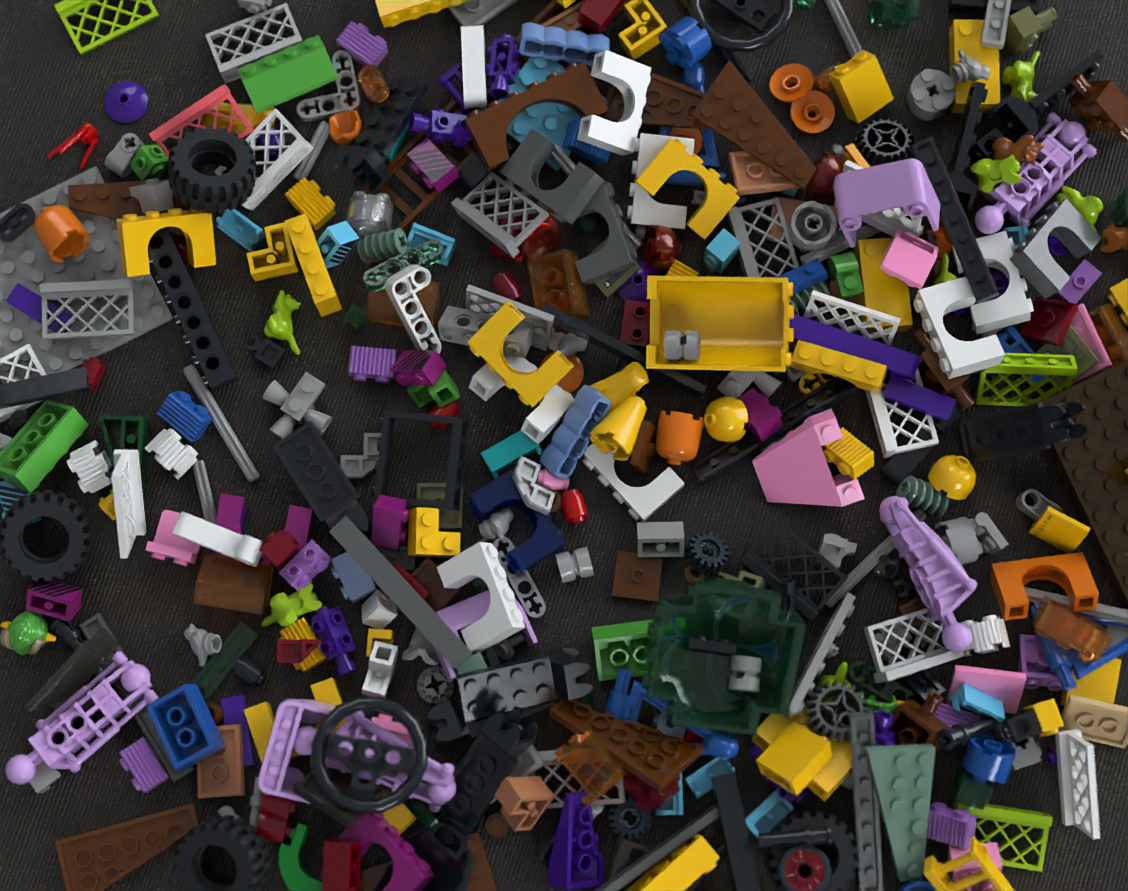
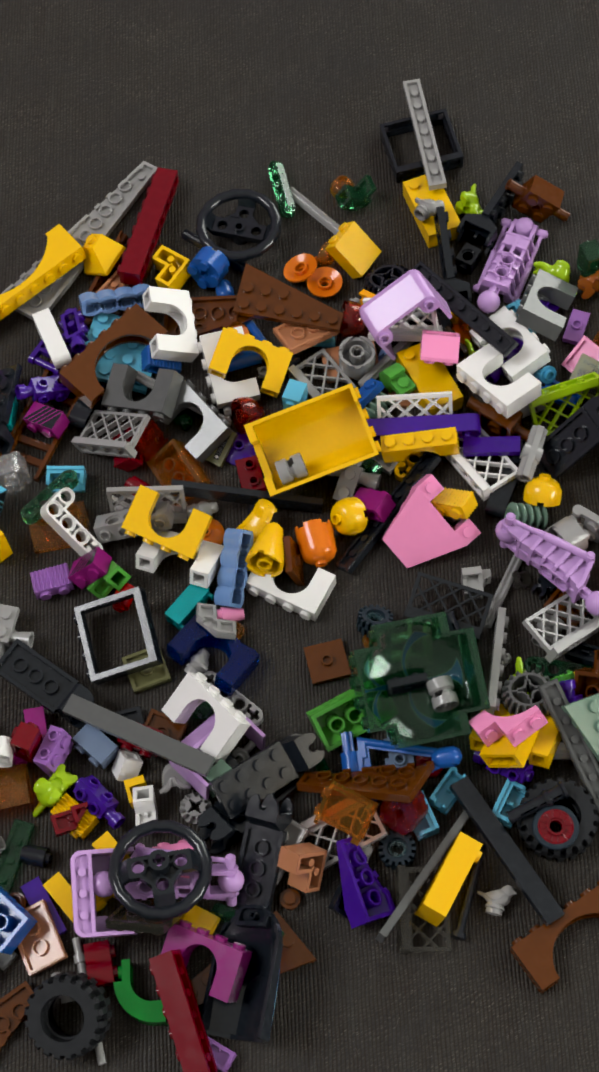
camera: 15 degrees left, 15 degrees down
(356, 315) = (26, 551): clear green plate -> none
(361, 465) = (71, 662): light grey tile -> none
(382, 245) = (27, 490): sand green piece -> none
(389, 522) = (109, 690): magenta brick -> none
(425, 537) = (145, 693): yellow brick -> none
(573, 506) = (254, 627): red brick -> none
(575, 564) = (274, 669): light grey wheel -> none
(660, 539) = (333, 624): light grey brick -> none
(804, 754) = (514, 727): none -> bright pink arch
(933, 83) = (408, 239): light grey brick -> none
(959, 428) = (531, 453): none -> light grey piece
(996, 171) = (475, 269): lime animal -> none
(1018, 333) = (546, 374): none -> dark azure plate
(1023, 149) = (484, 253): dark orange animal -> none
(1025, 27) = (458, 168): olive brick -> none
(1048, 321) = (567, 357): dark red tile -> none

